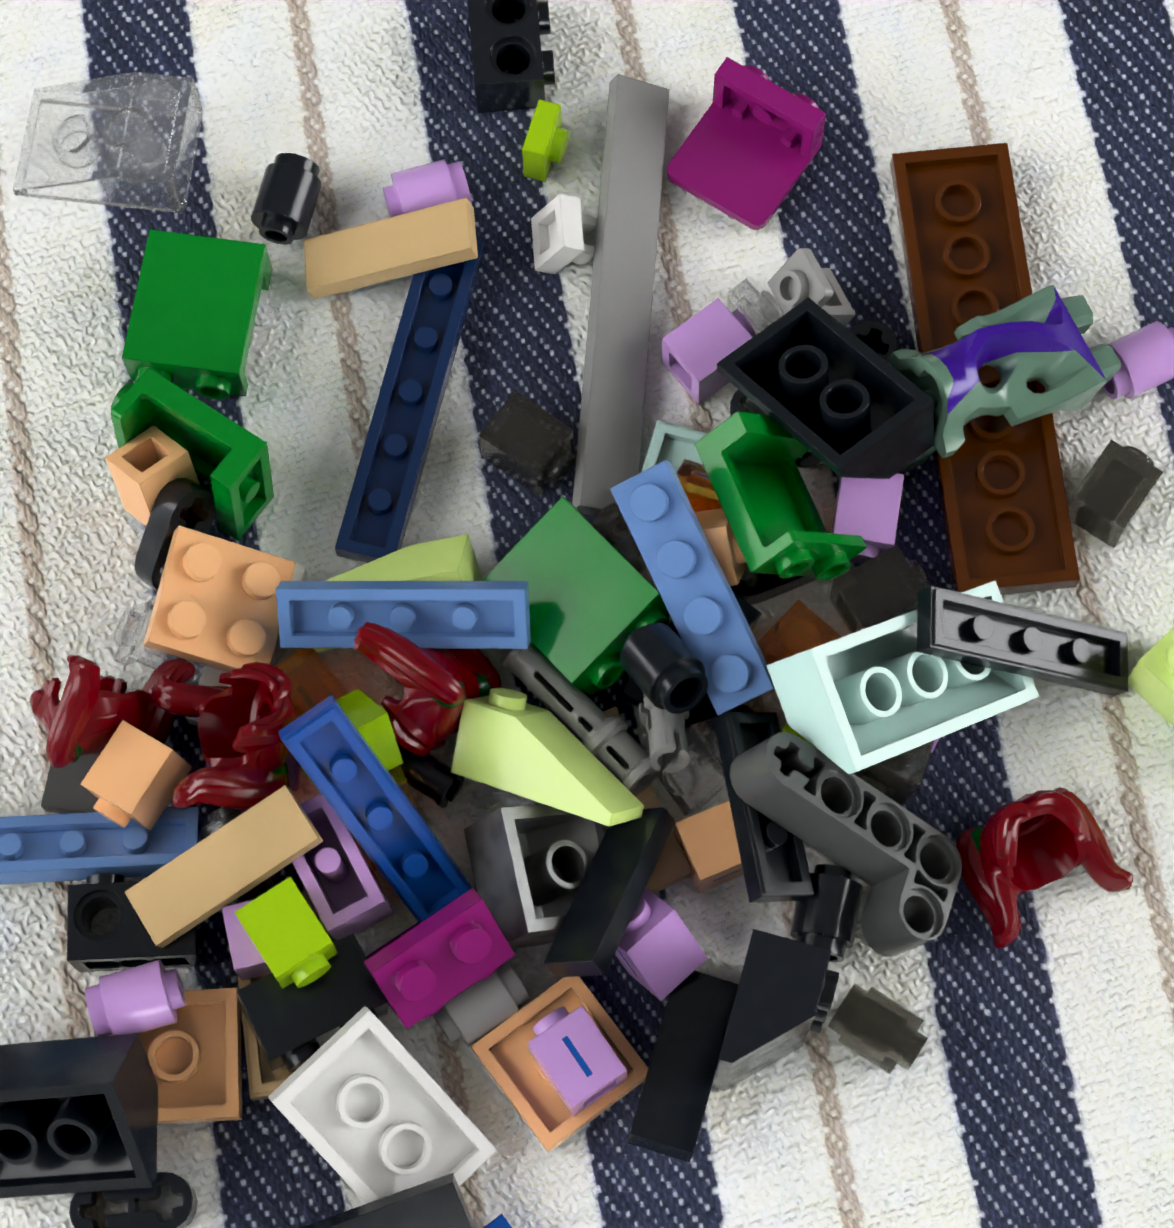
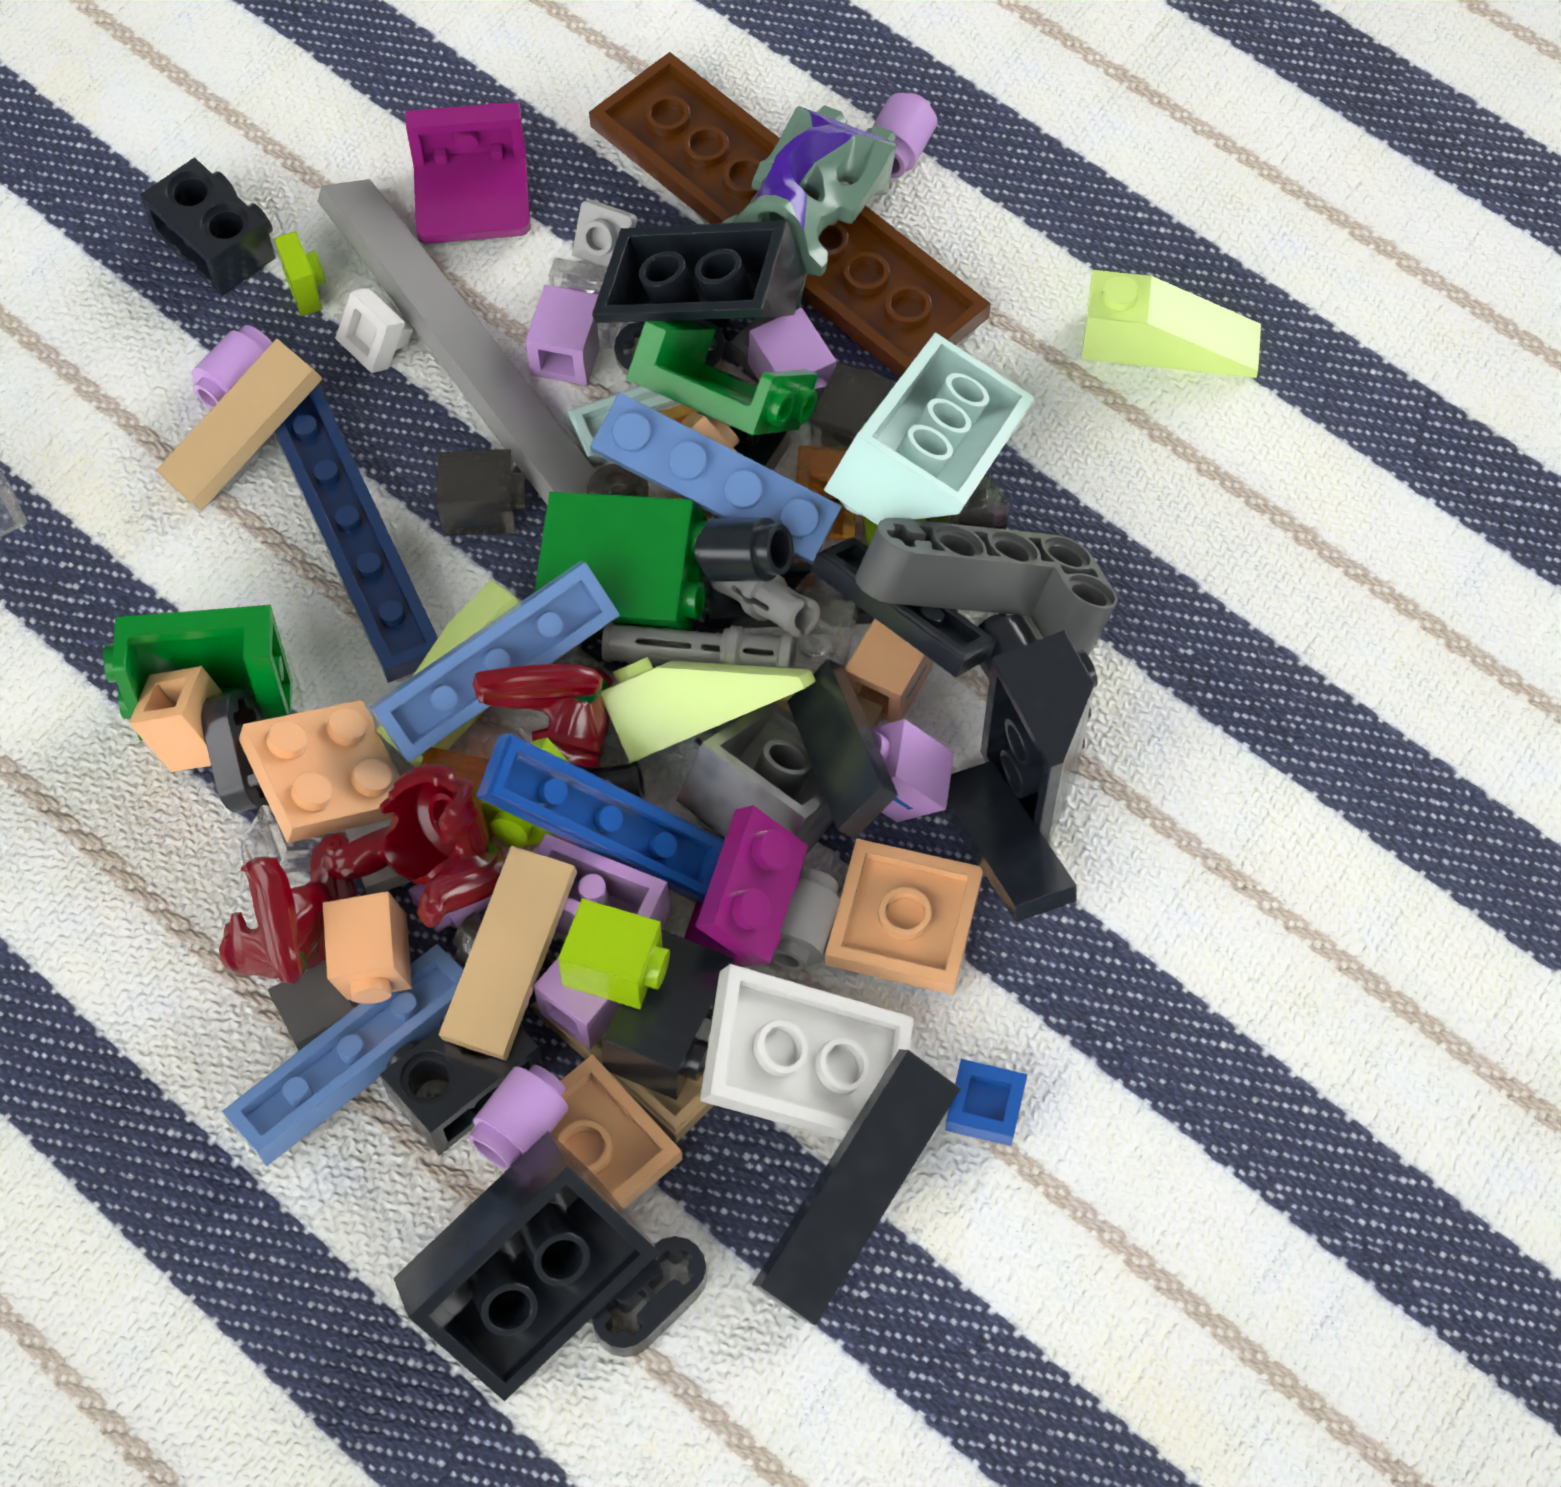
camera: 40 degrees left, 10 degrees down
(196, 311) = (103, 566): green panel -> none
(287, 198) = (115, 447): black brick -> none
(576, 1058) = (921, 890): lavender brick -> none
(878, 1029) = (1129, 712): clear smoke brick -> none
(1021, 641) = (991, 361): black tile -> none
(1029, 847) = (1122, 503): dark red hair -> none
(1113, 492) = (962, 231): clear smoke brick -> none

